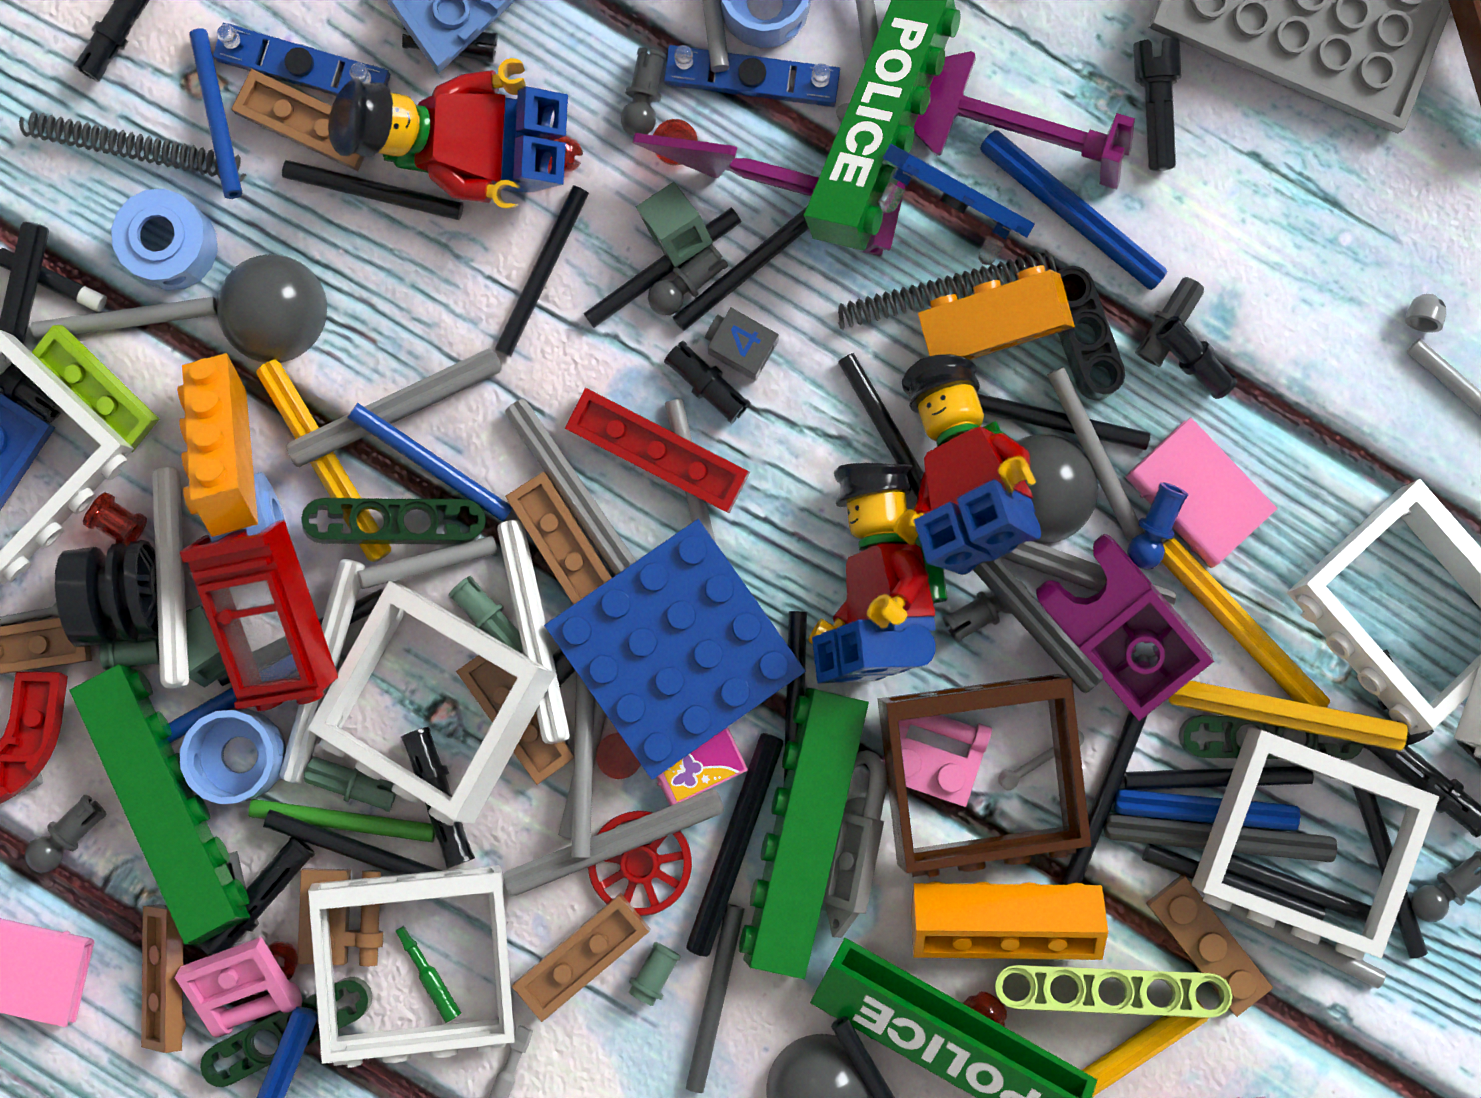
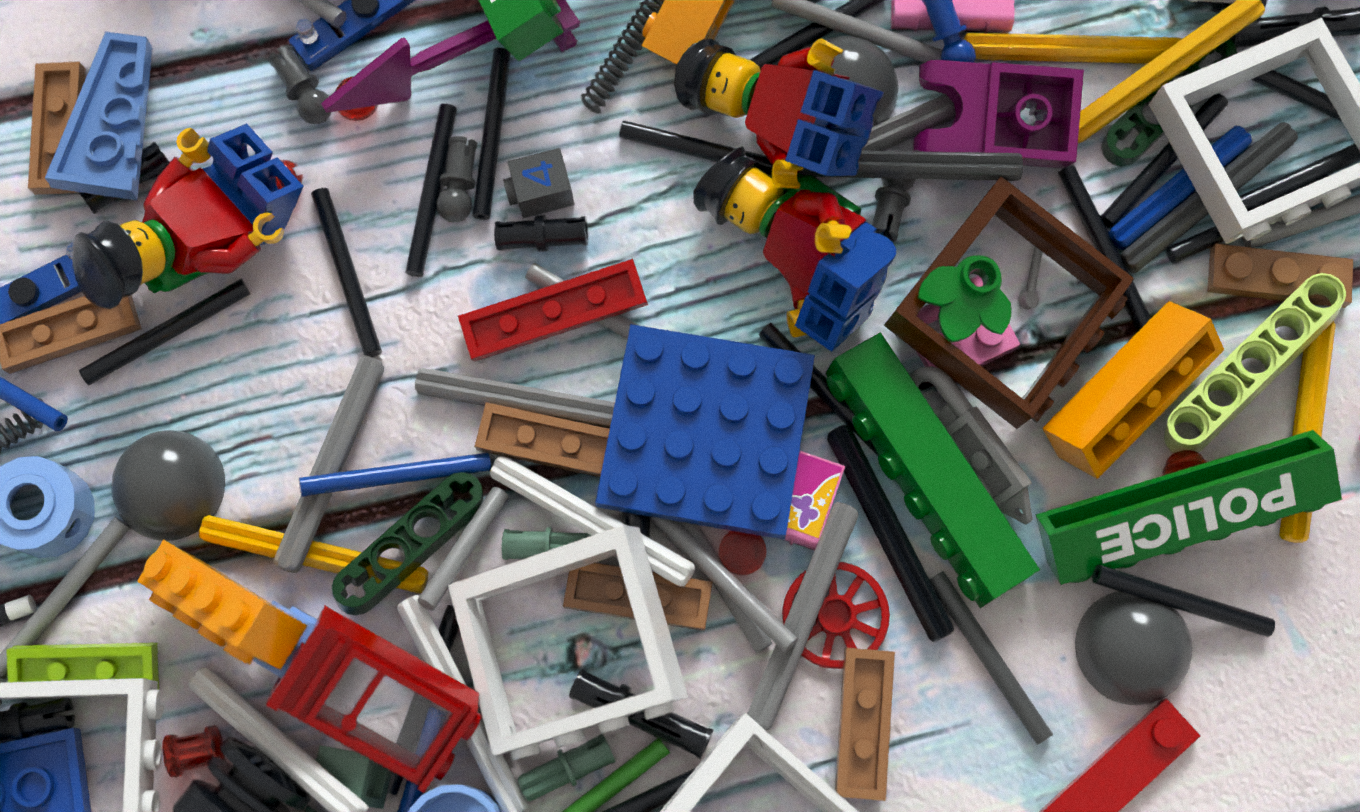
camera: 45 degrees left, 10 degrees down
(654, 974) = (929, 682): sand green pin -> none
(674, 224) = (411, 147): sand green brick -> none
(941, 747) = (965, 304): none -> green plate

